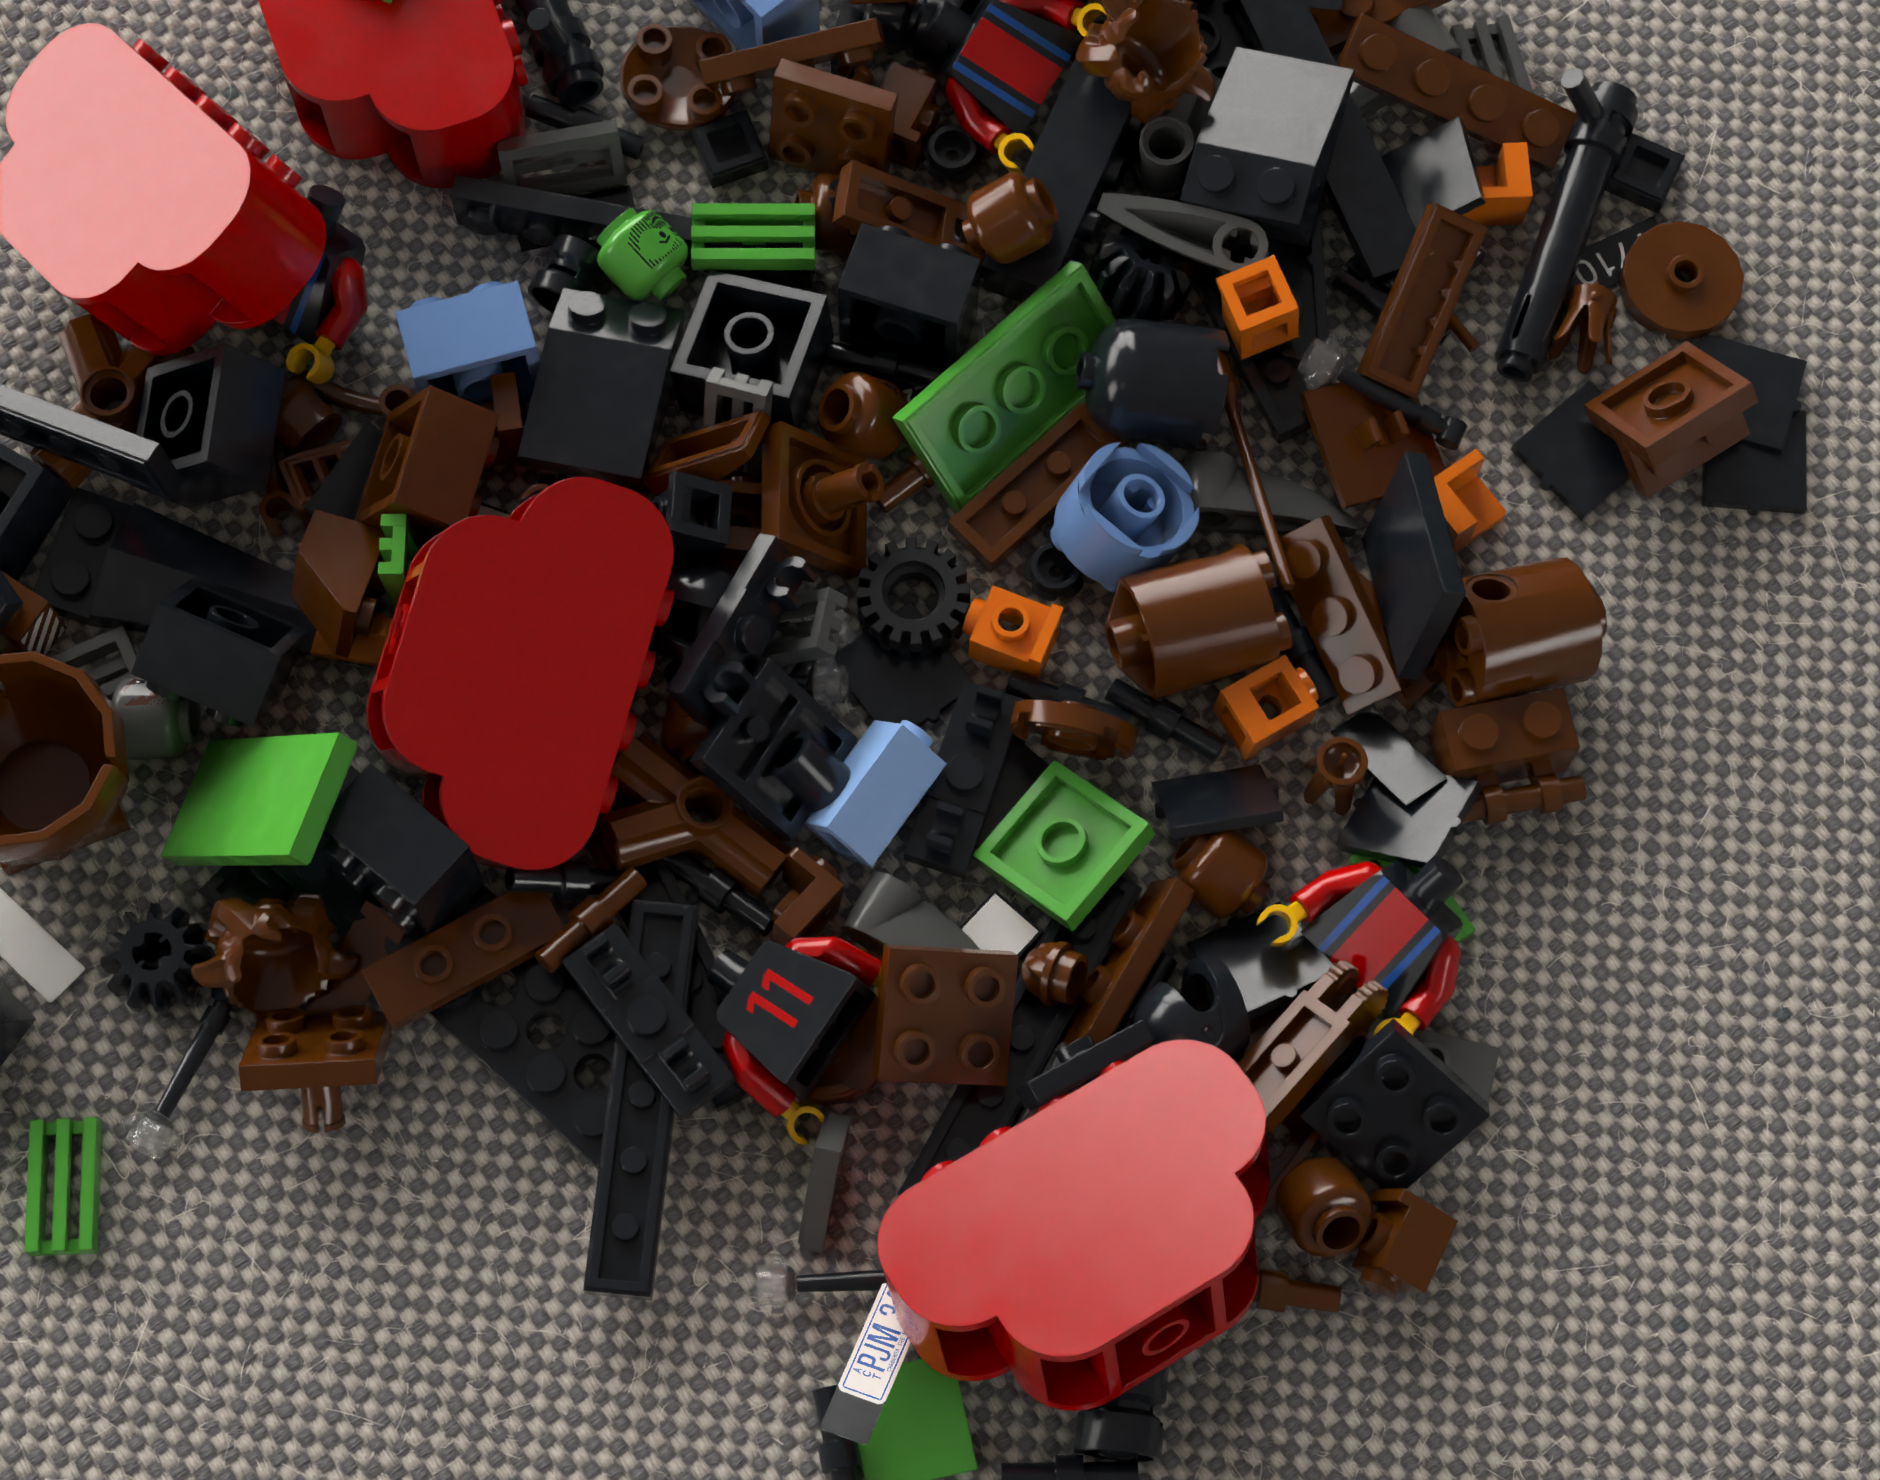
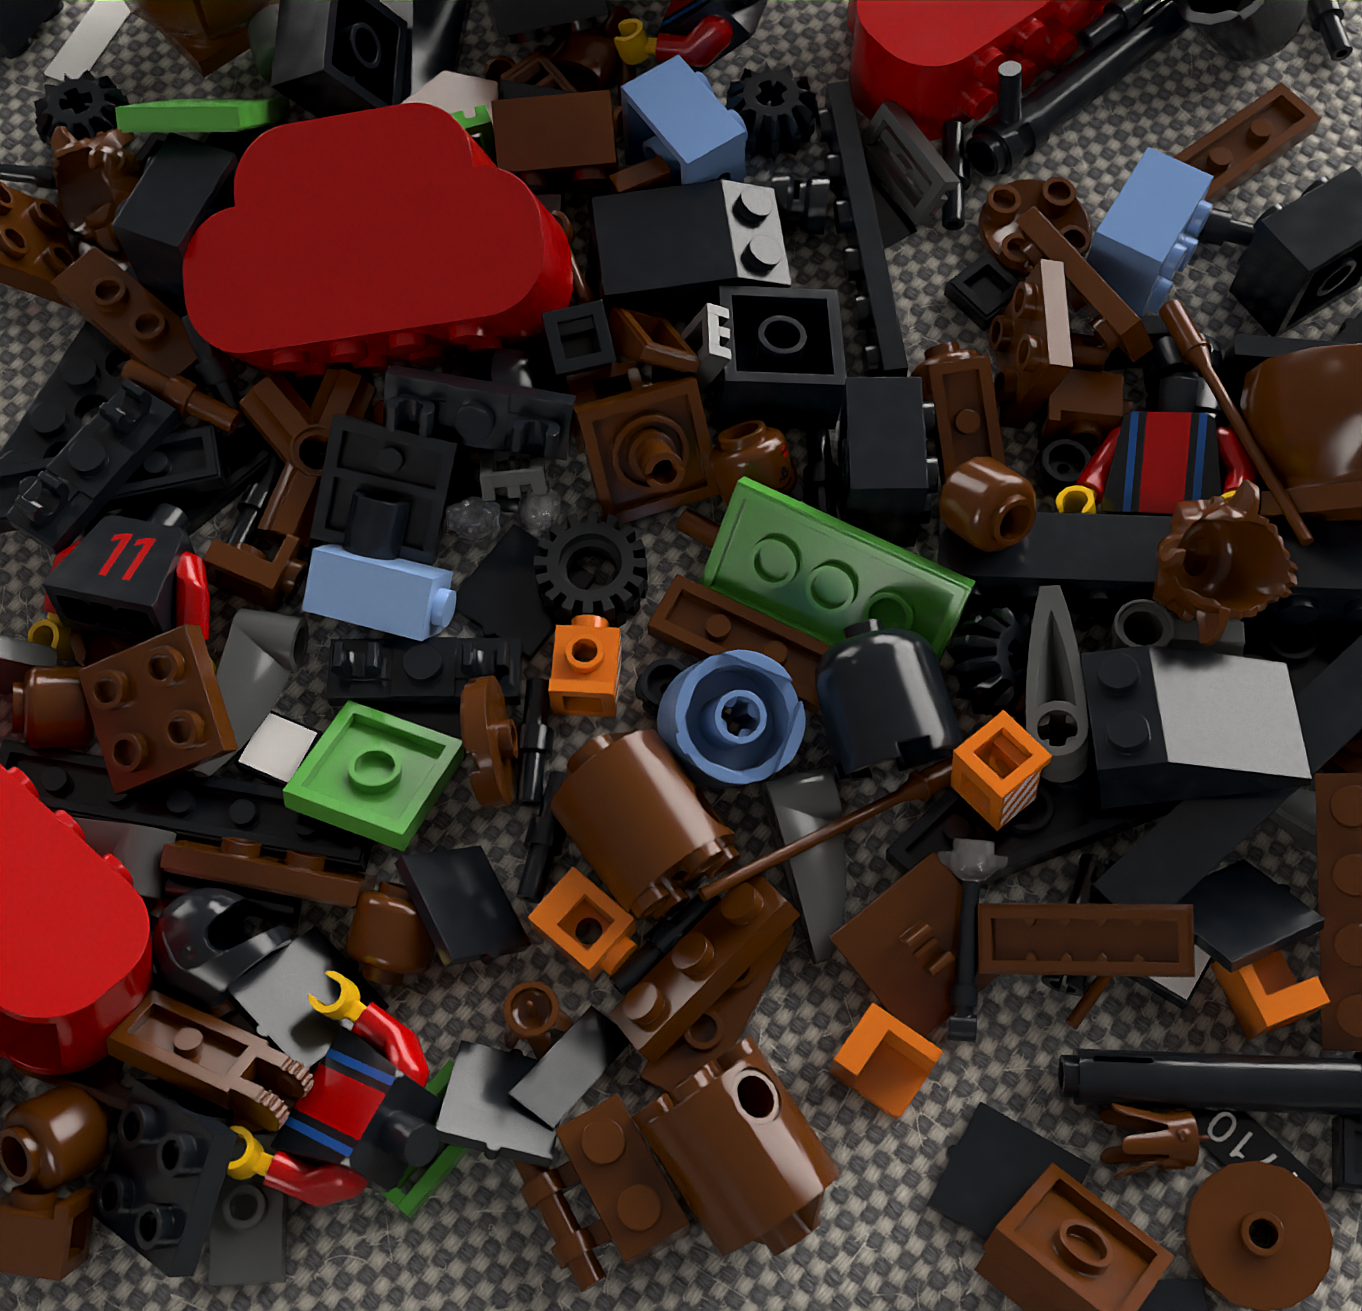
camera: 75 degrees right, 5 degrees down
(439, 244) = (775, 110): none -> black gear
(642, 255) = (826, 231): bright green head -> none
(753, 226) = (870, 273): bright green tile -> none
(889, 1128) = (52, 709): none -> reddish brown head
(1055, 973) = (235, 804): reddish brown plate -> none
(1083, 1061) = (128, 841): black plate -> none
(1413, 566) = (767, 1013): black tile -> none

